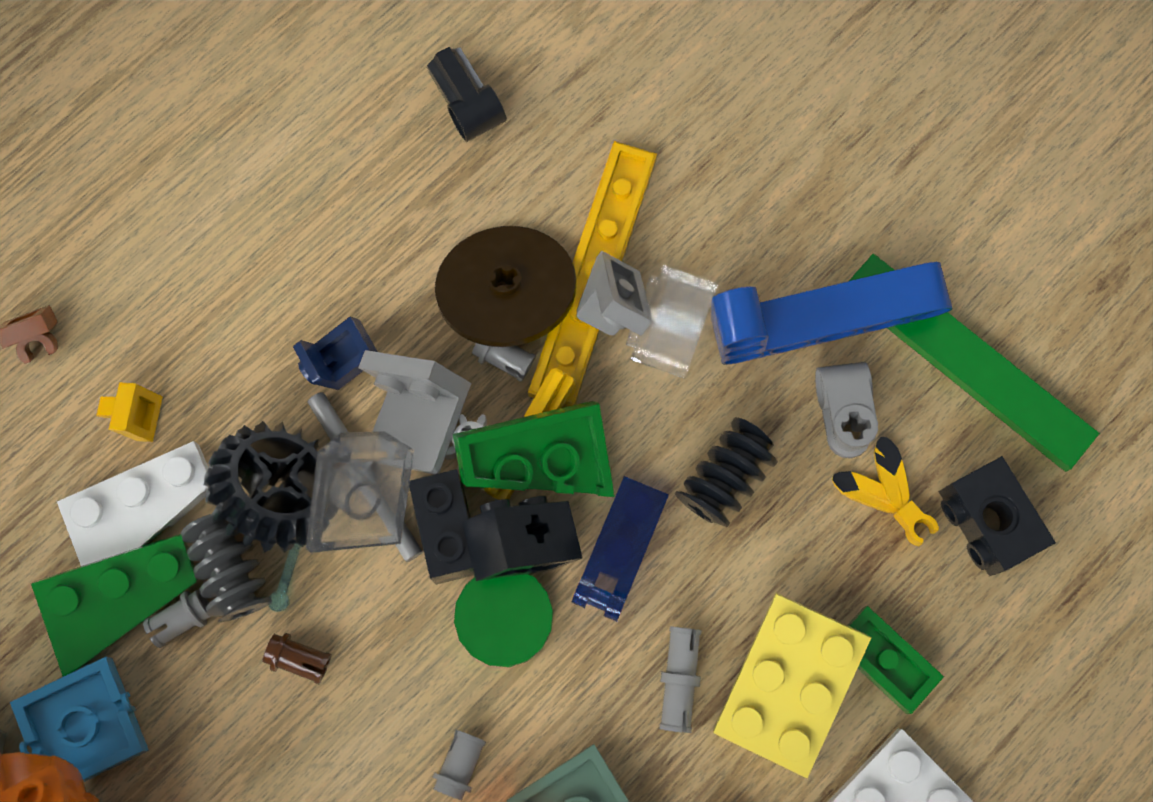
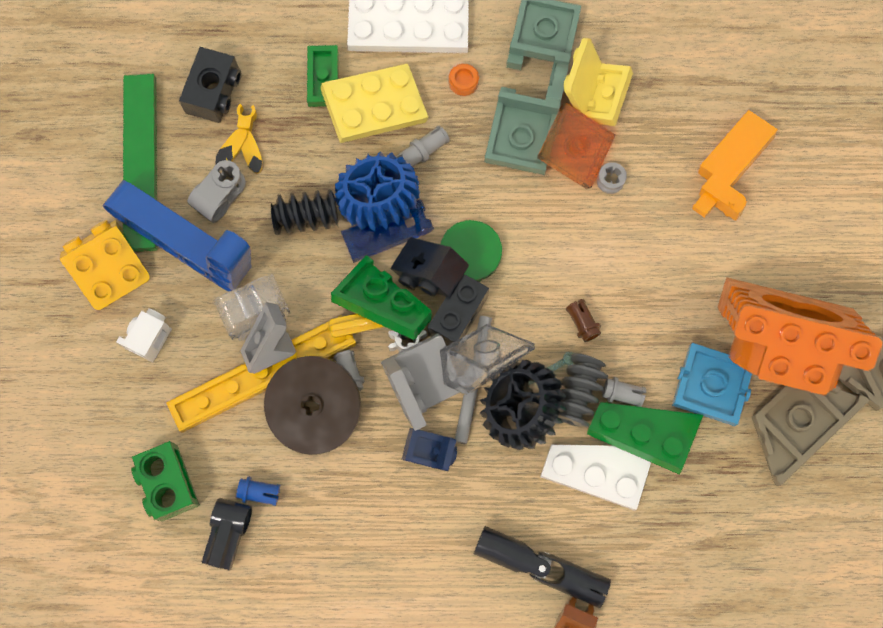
camera: 135 degrees left, 0 degrees up
(118, 348) = (520, 558): none -> black piece
(132, 411) = (559, 520): yellow tile -> none
(459, 765) = (552, 206): light grey pin -> none
(475, 158) = (257, 491): none -> blue pin
(568, 93) = (172, 477): none -> green brick
(698, 597) = (377, 191): none -> blue gear
(748, 192) = (146, 335): none -> white brick
(875, 217) = (103, 264): none -> yellow bracket

